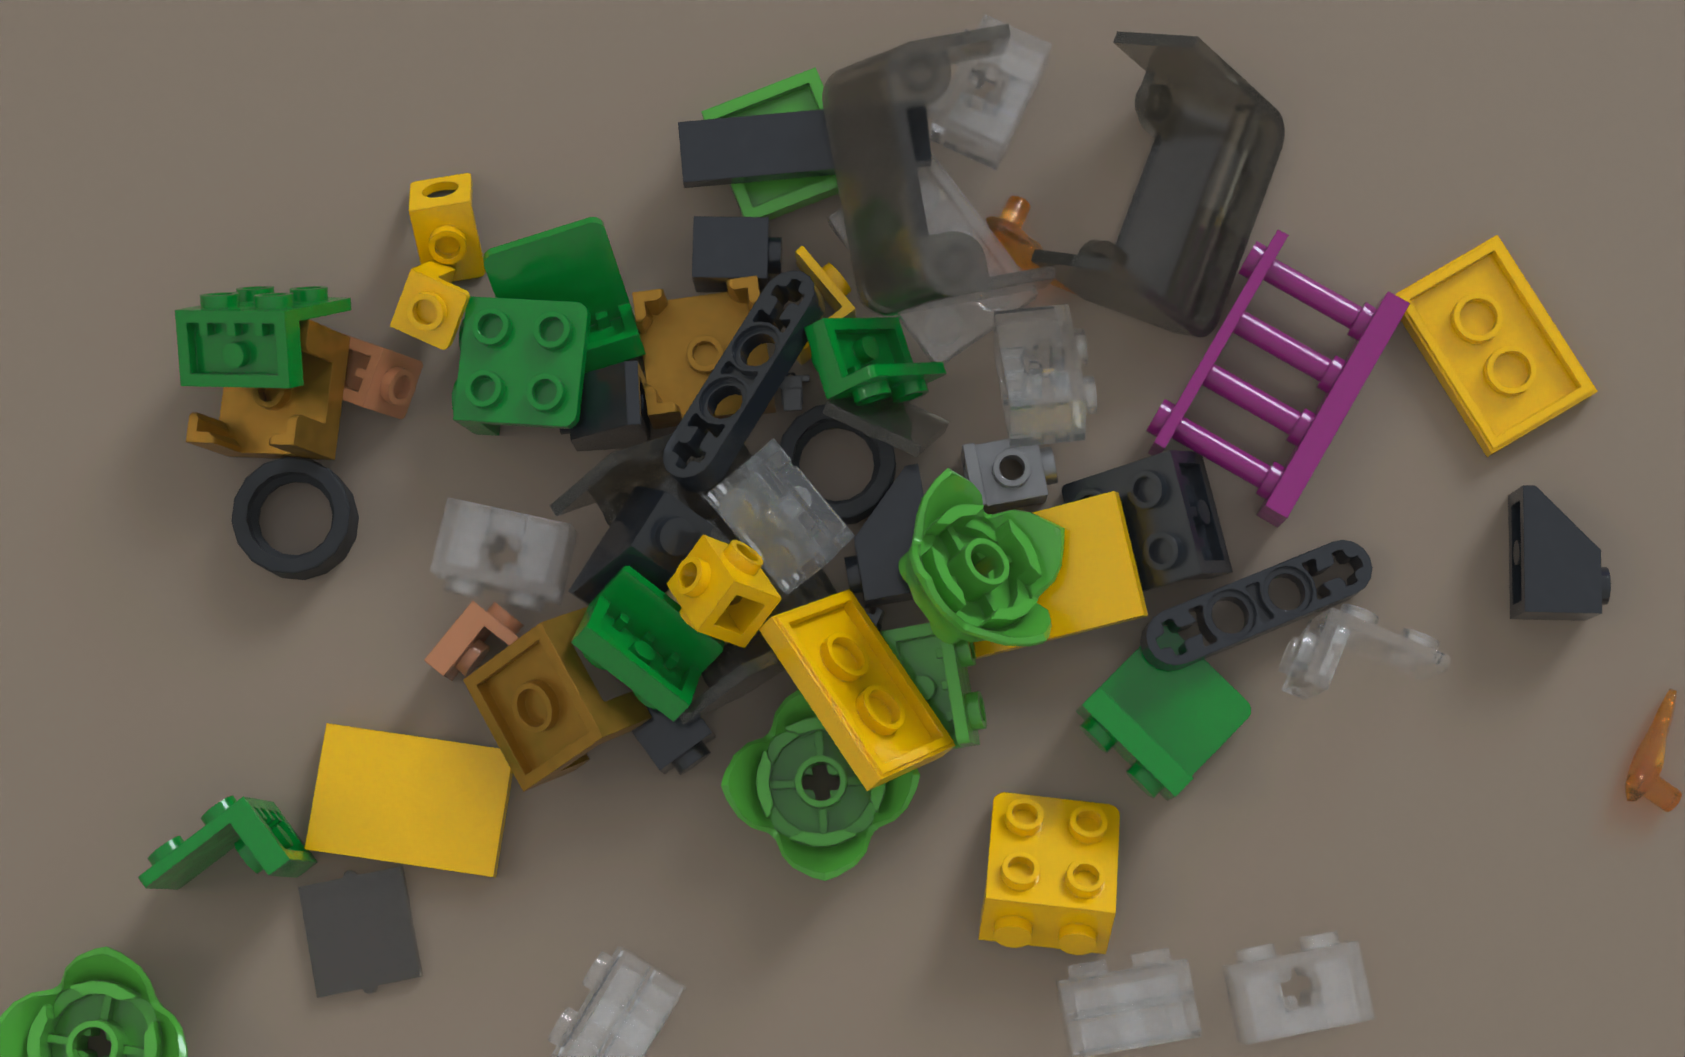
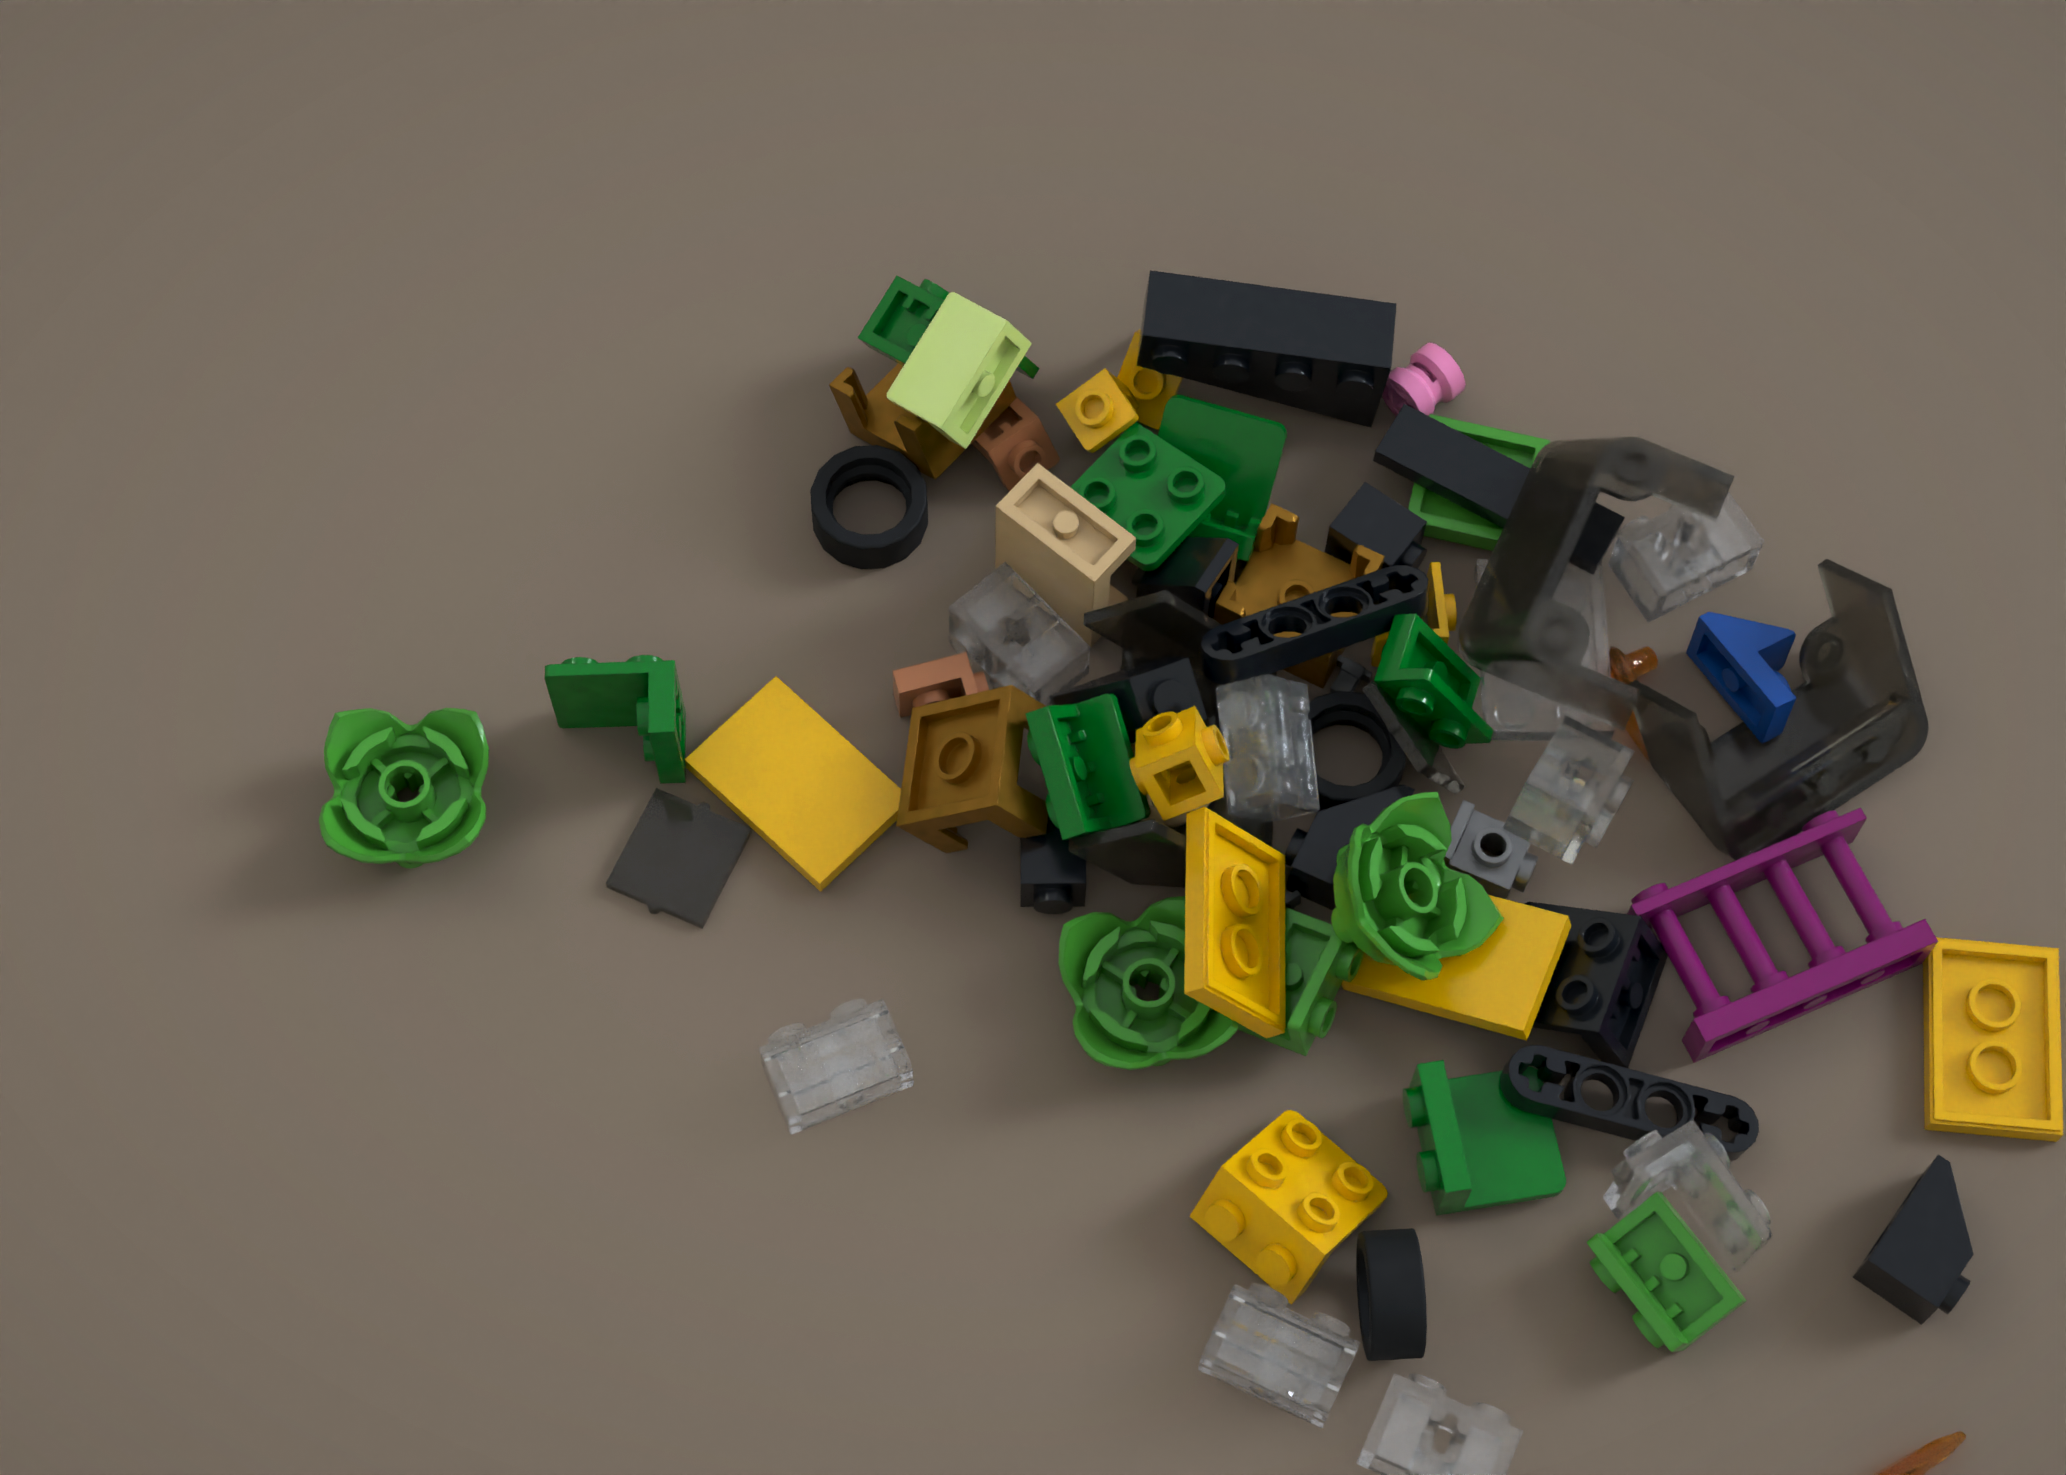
camera: 30 degrees right, 15 degrees down
(291, 364) = (959, 368): none -> yellowish green panel
(492, 461) = (1061, 547): none -> tan panel
(529, 148) = (1270, 342): none -> black wedge
(676, 86) = (1425, 382): none -> bright pink wheel
(1093, 162) = (1743, 666): none -> blue slope
(1184, 902) = (1391, 1294): none -> black tyre
(1375, 730) = (1664, 1274): none -> bright green bracket

